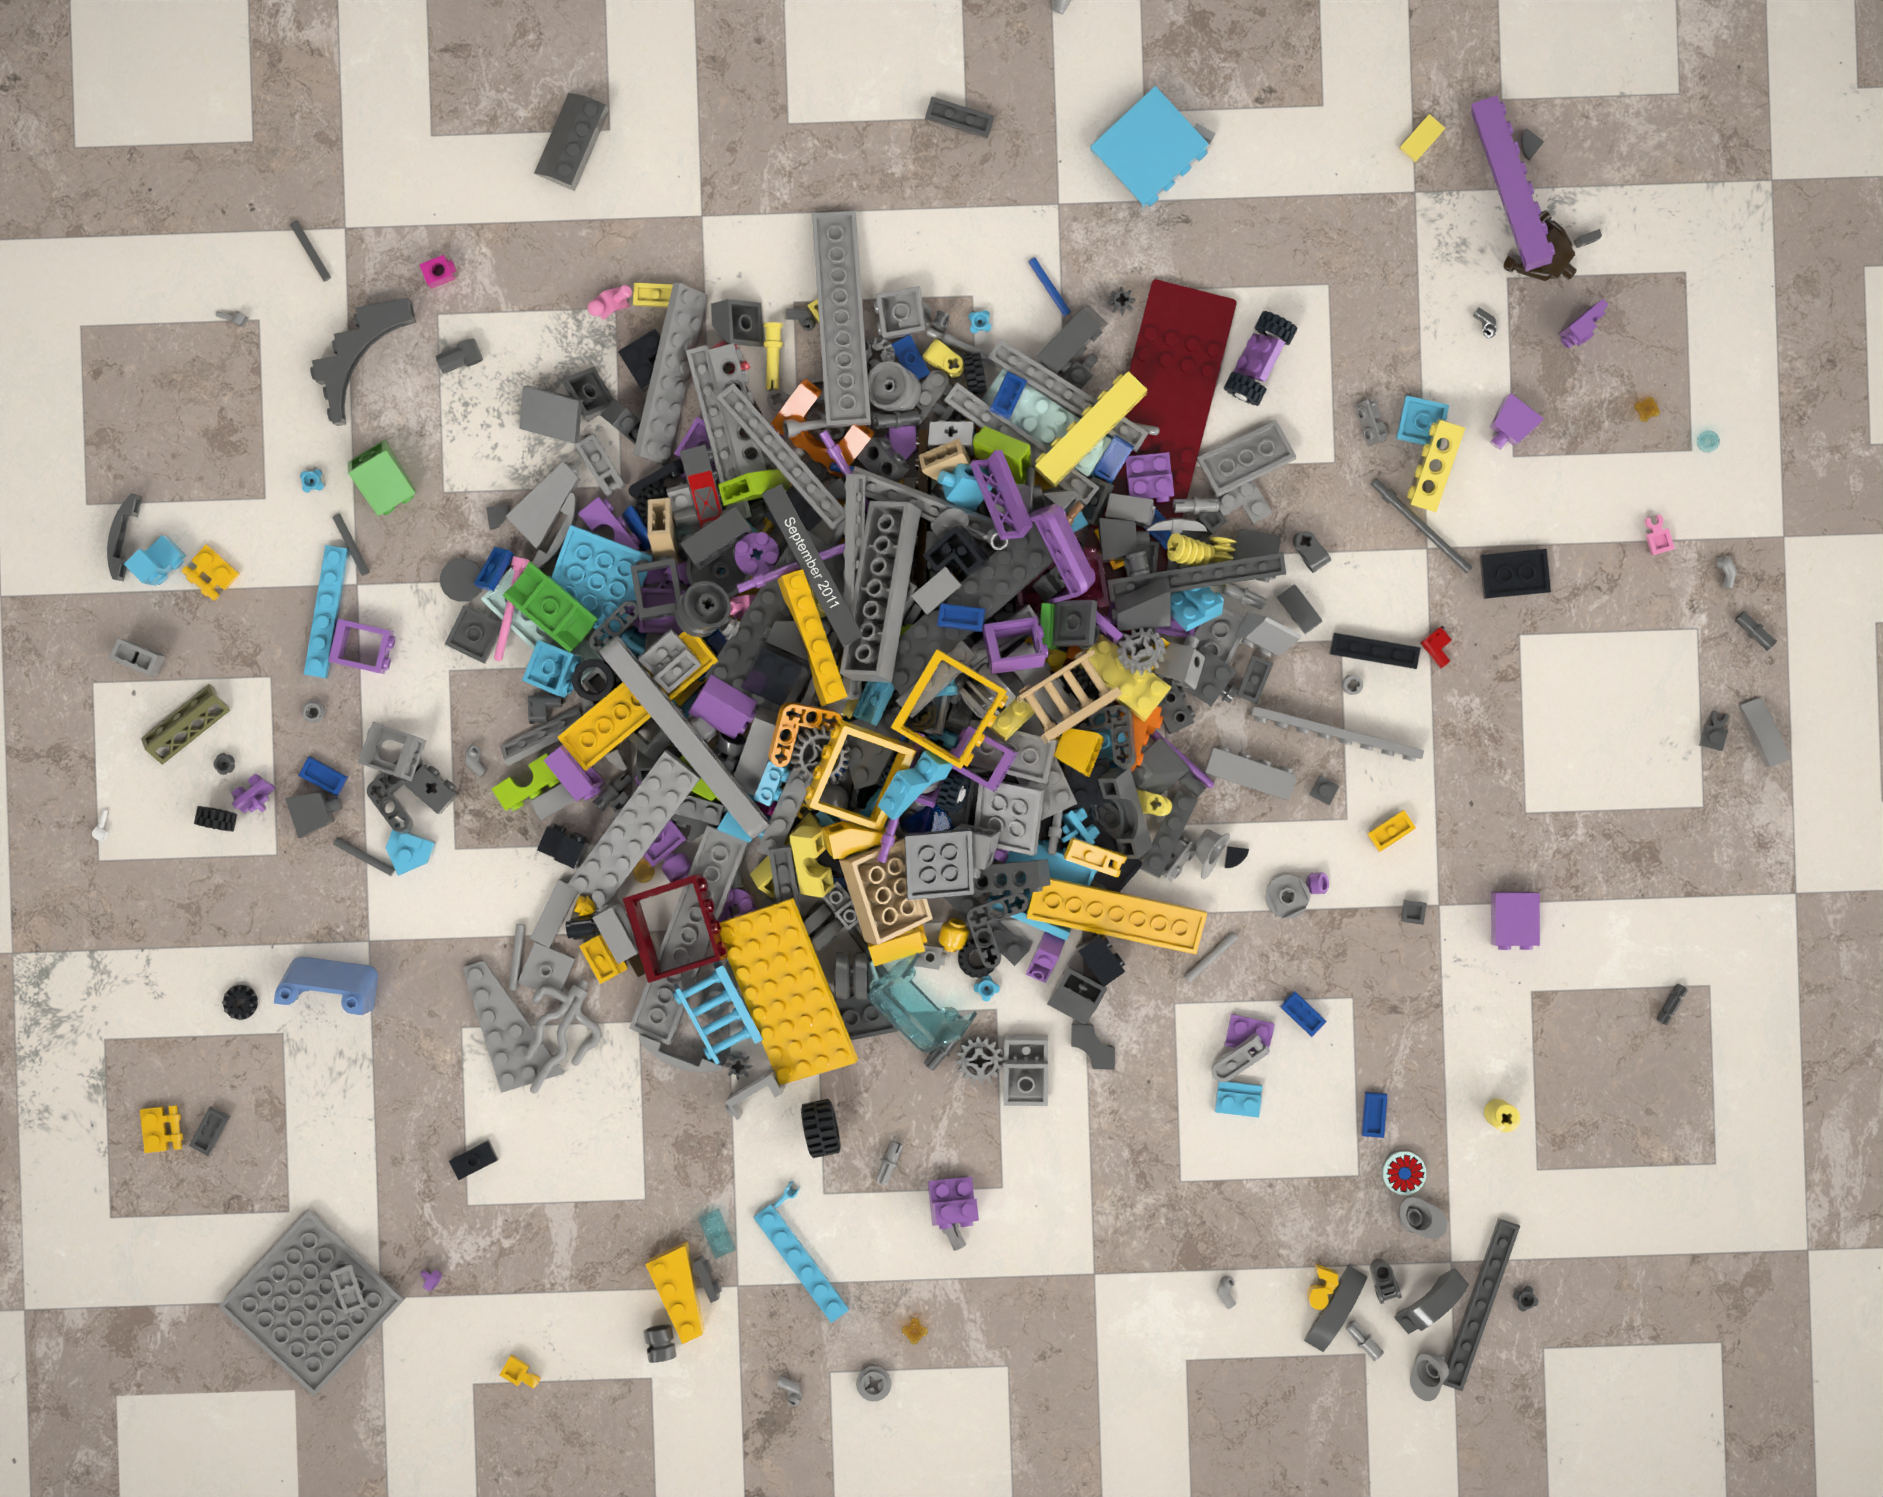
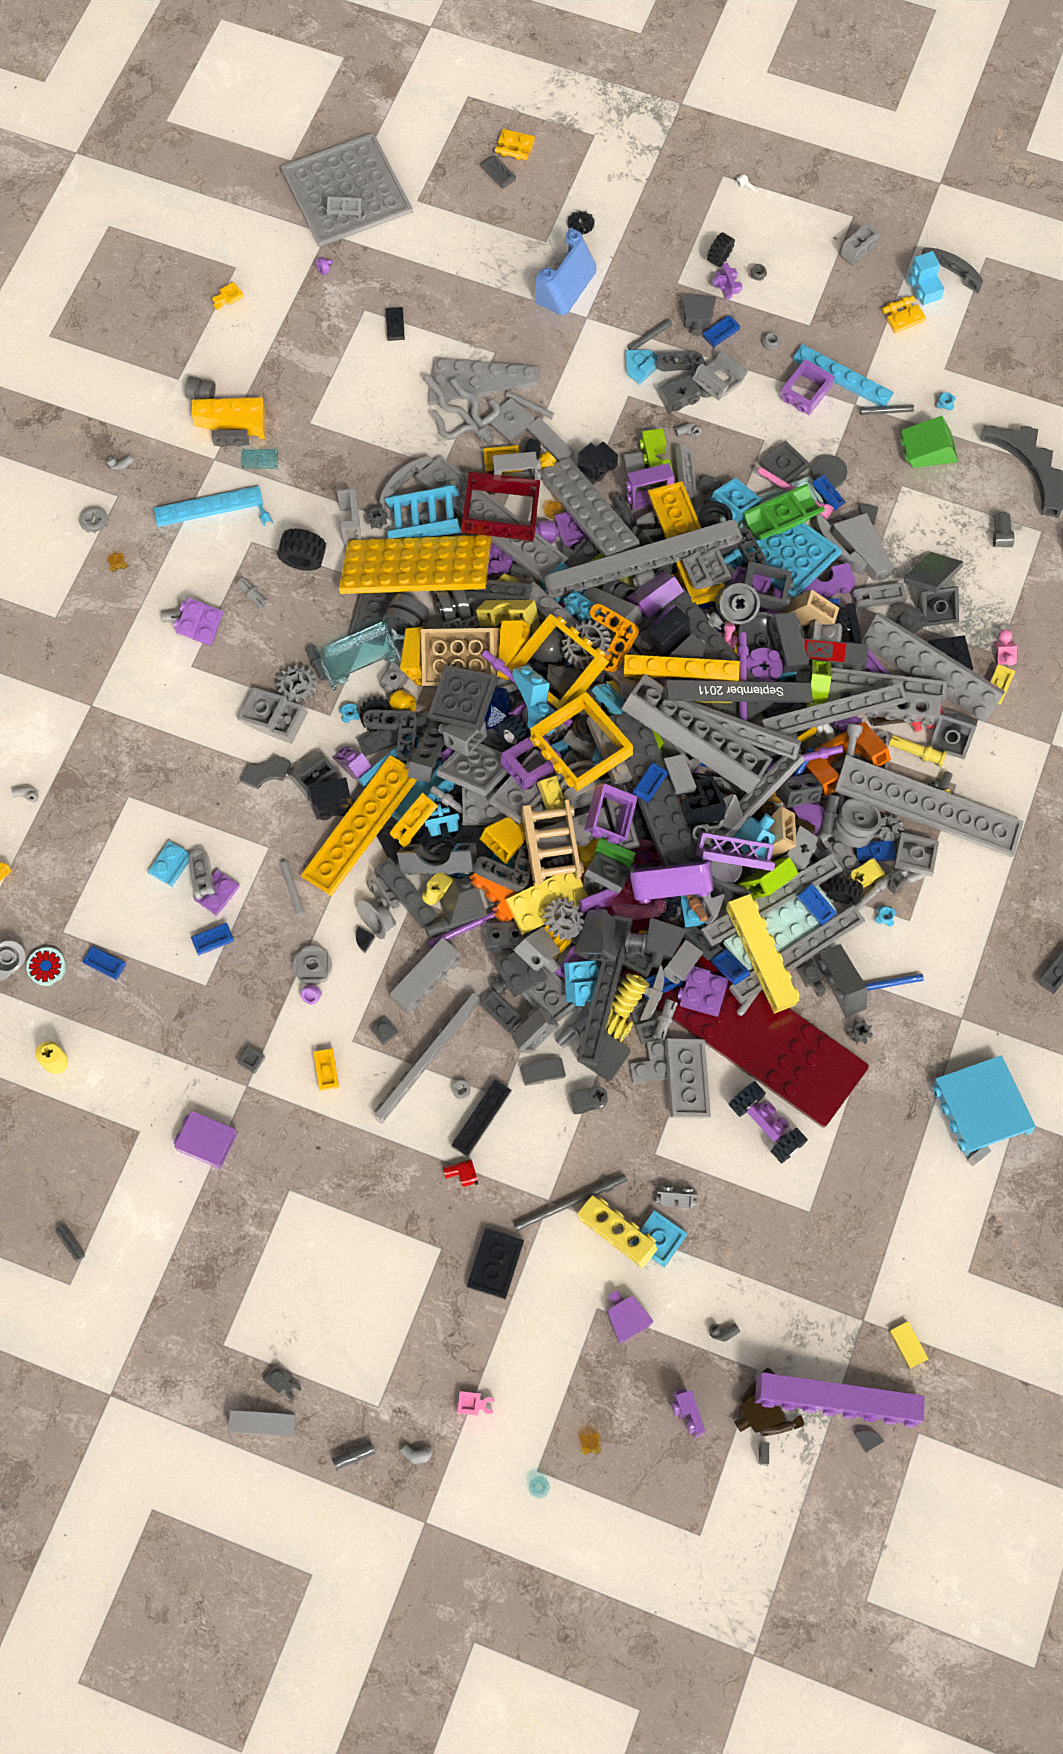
camera: 115 degrees right, 20 degrees down
(193, 709) = (803, 256): olive fence -> none

